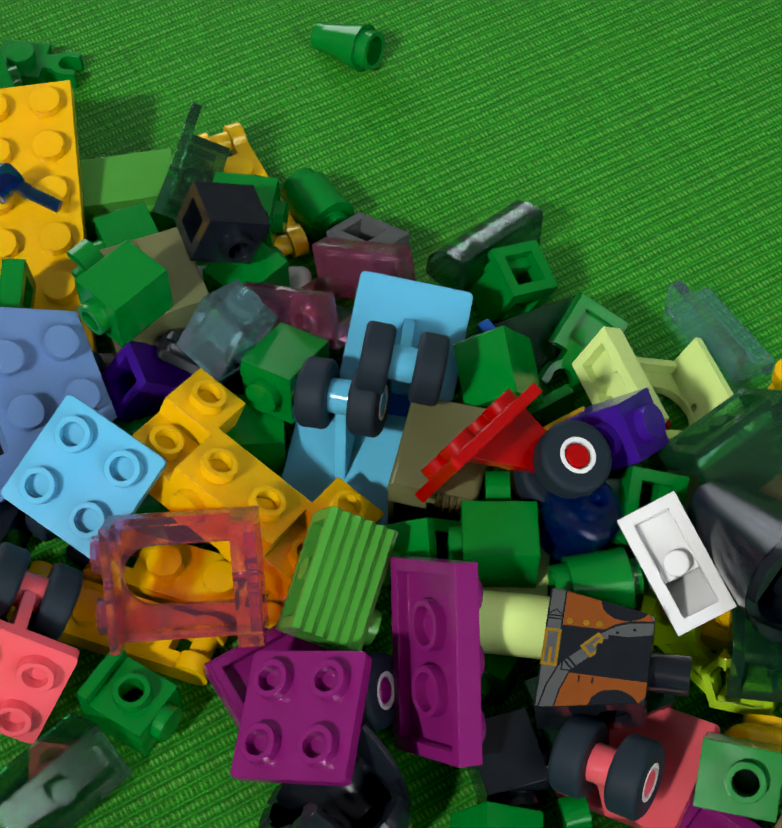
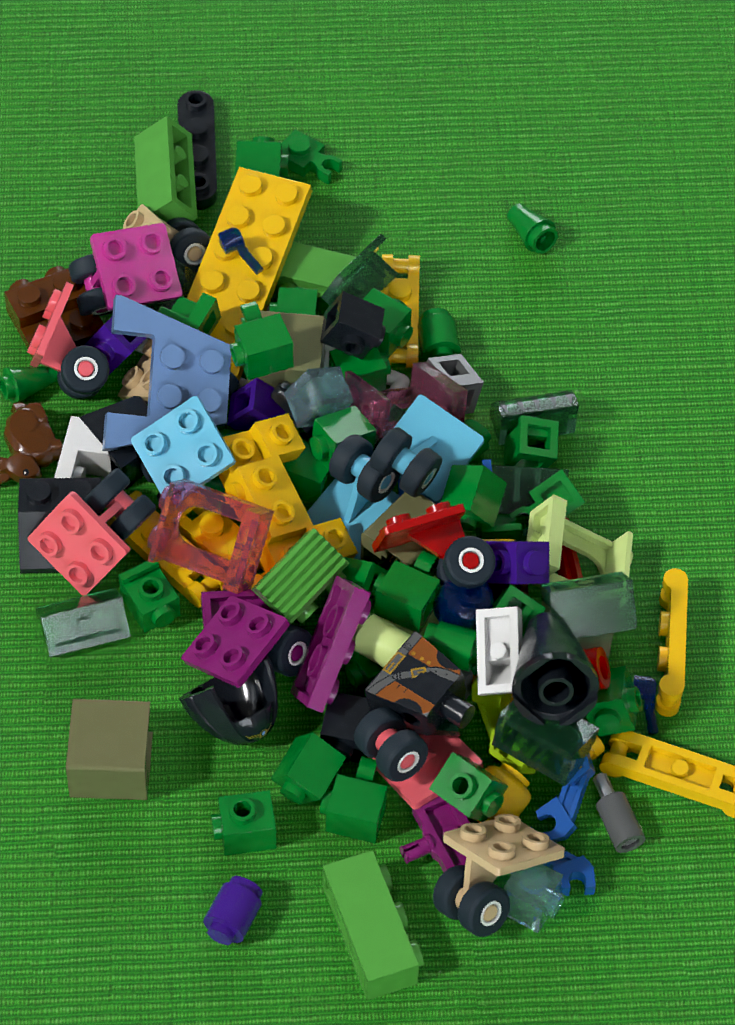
camera: 25 degrees right, 0 degrees up
(728, 341) = (652, 538): clear light blue panel -> none

